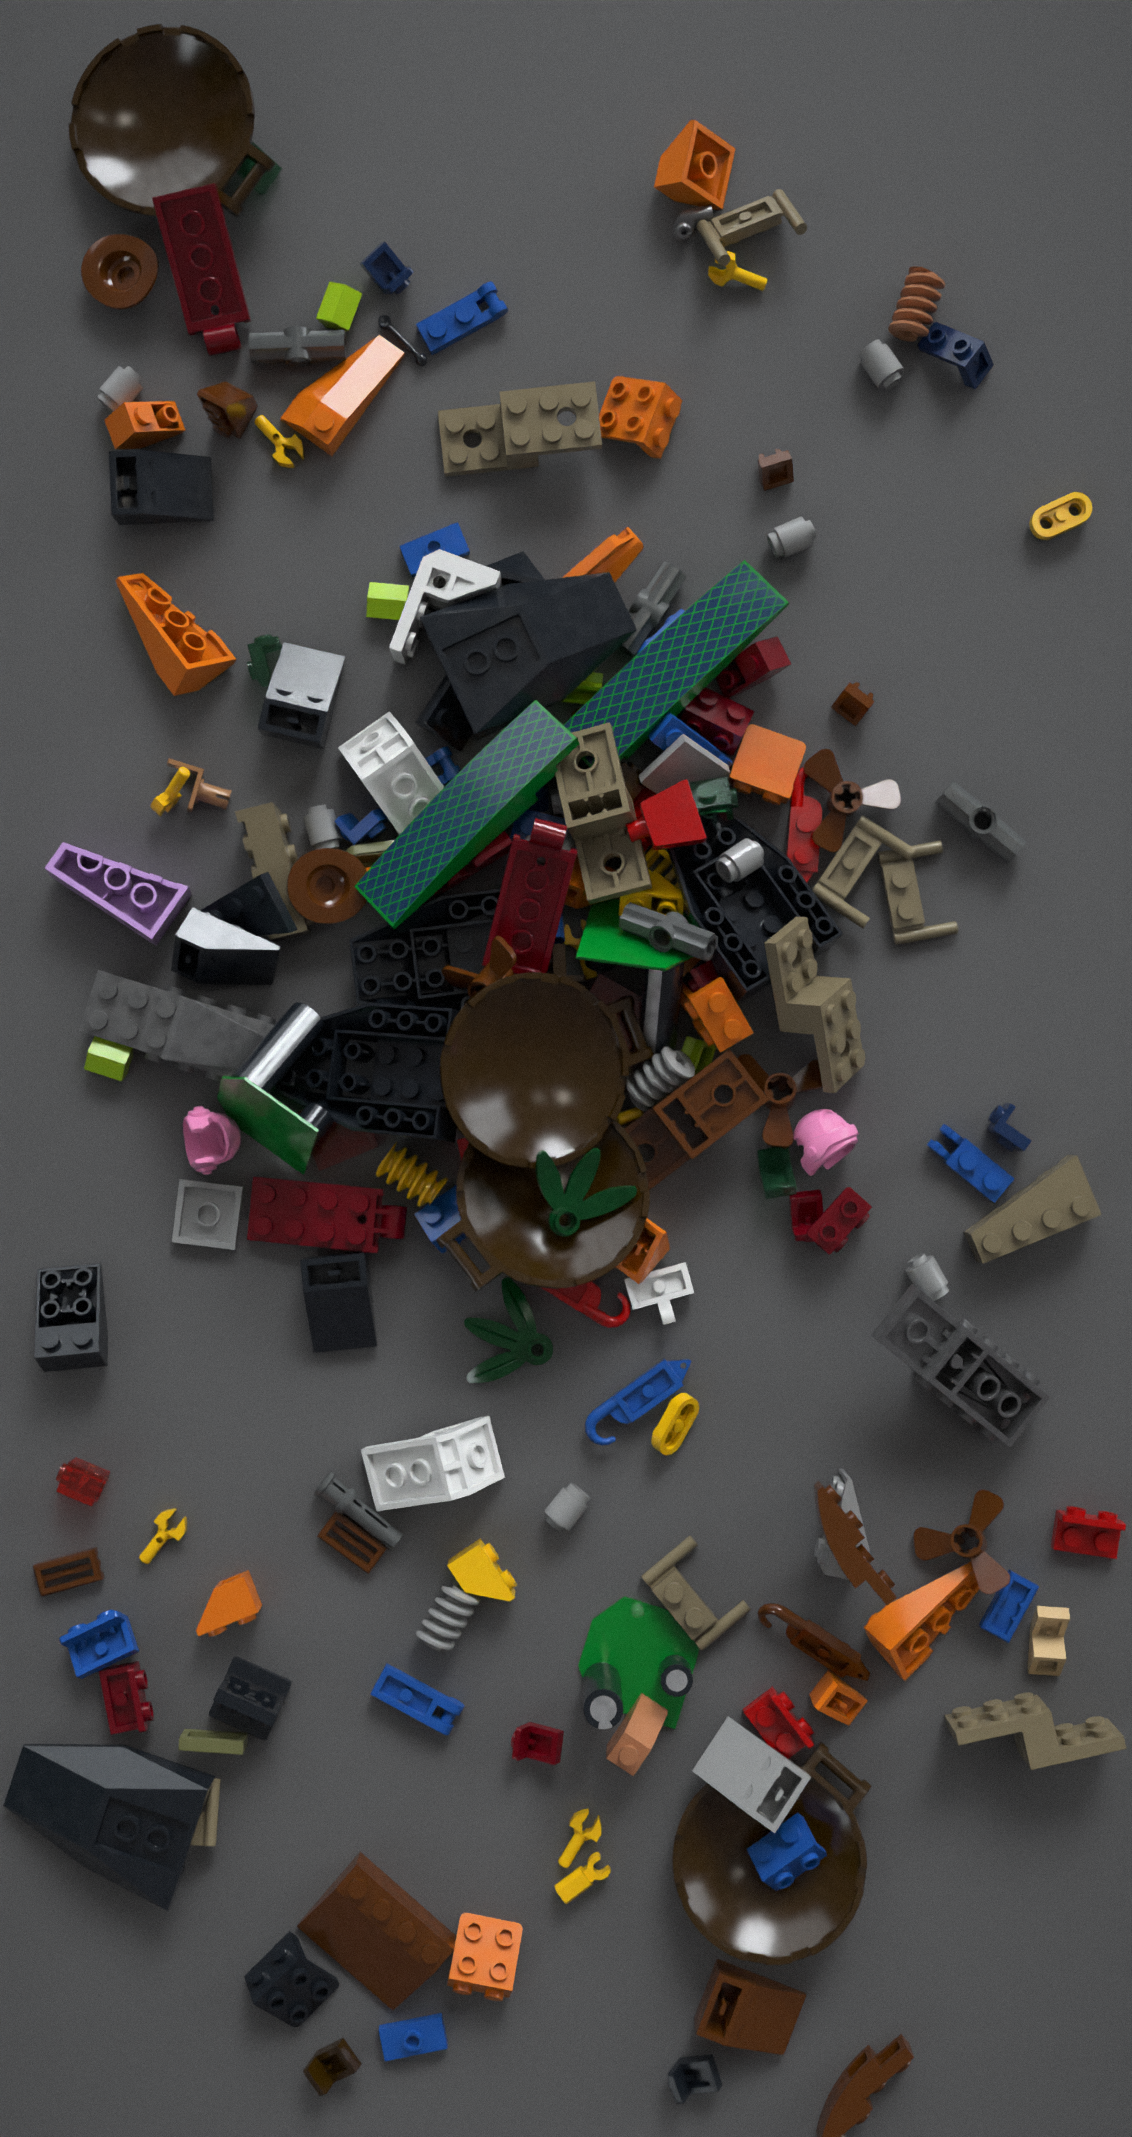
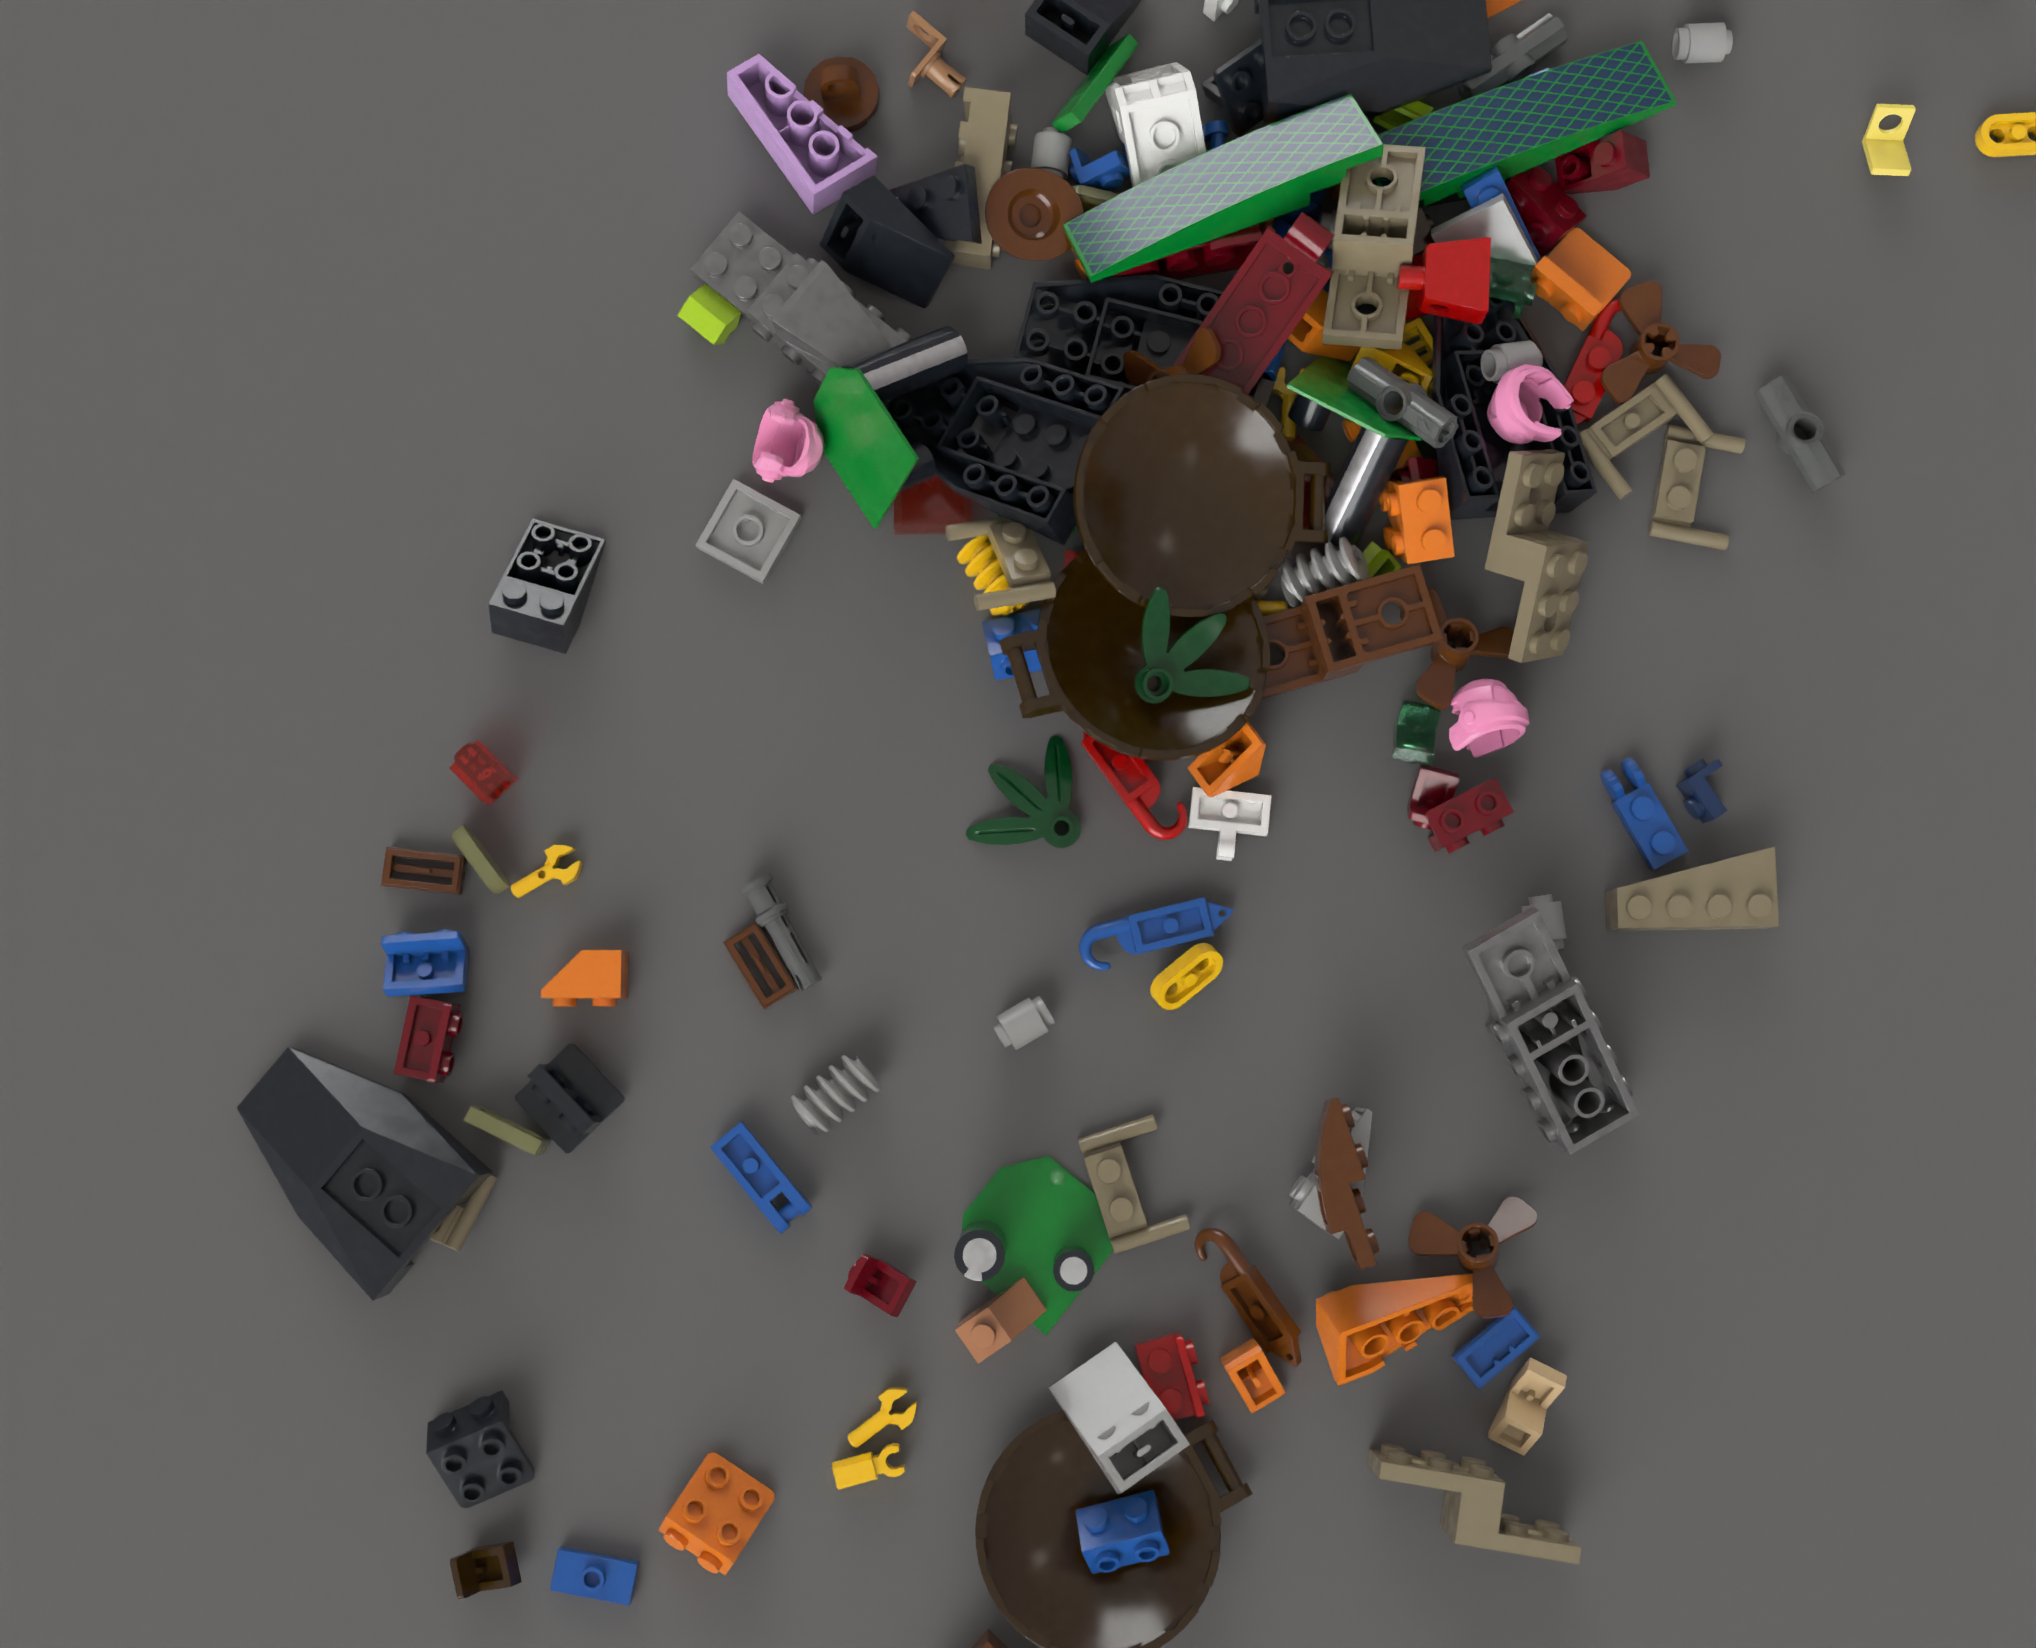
camera: 25 degrees right, 5 degrees down
(108, 1548) = (480, 859): none -> olive tile
(139, 839) = (844, 91): none -> reddish brown tile
(171, 795) = (893, 61): yellow bar -> none
(322, 1215) = (878, 581): dark red hinge -> none
(333, 759) = (1095, 84): none -> green tile
(339, 1301) = (857, 683): black slope -> none
(378, 1932) = (603, 1433): reddish brown slope -> none
(425, 1168) = (1018, 557): none -> dark tan plate
(434, 1466) = (889, 910): white bracket -> none
(480, 1574) = (892, 1058): yellow slope -> none
(759, 896) = (1516, 404): none -> bright pink helmet
(853, 703) = (1702, 248): reddish brown tile -> none
(964, 565) = (1886, 148): none -> light yellow bracket
(1087, 1533) = (1620, 1298): red bracket -> none

